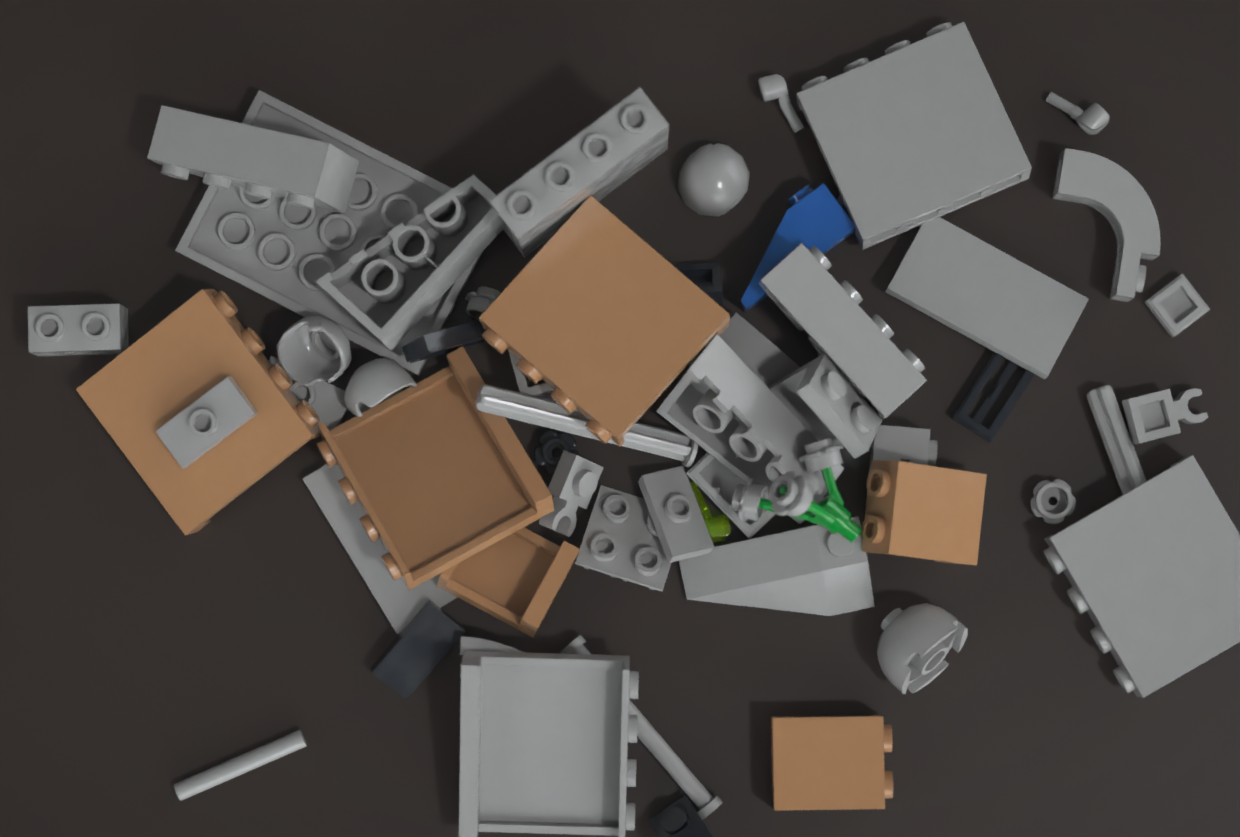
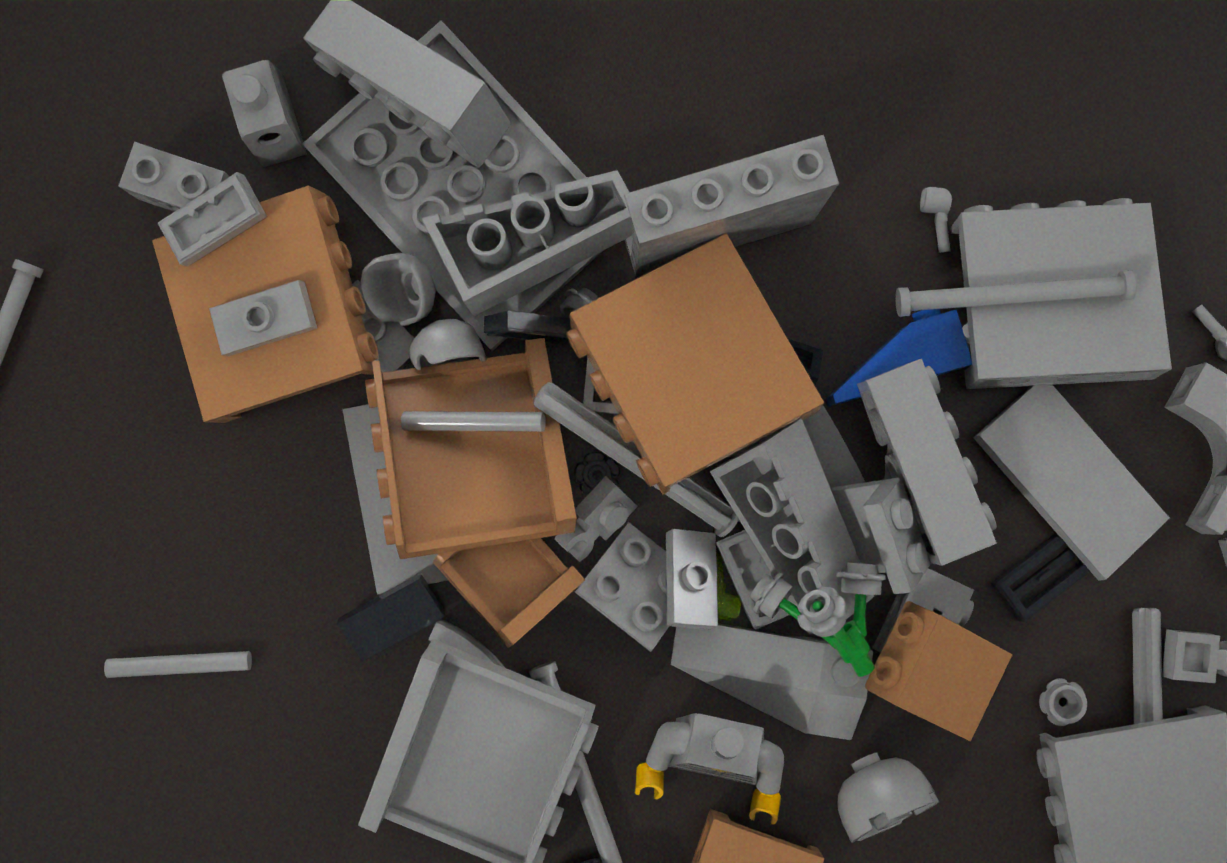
camera: 10 degrees right, 0 degrees up
(128, 351) = (212, 219): none -> light grey plate
(132, 236) = (263, 107): none -> light grey torso
(427, 444) = (473, 421): none -> light grey bar
(713, 179) = (845, 268): light grey hair -> none
(754, 657) = (718, 750): none -> light grey torso
(868, 151) = (1122, 285): none -> light grey bar

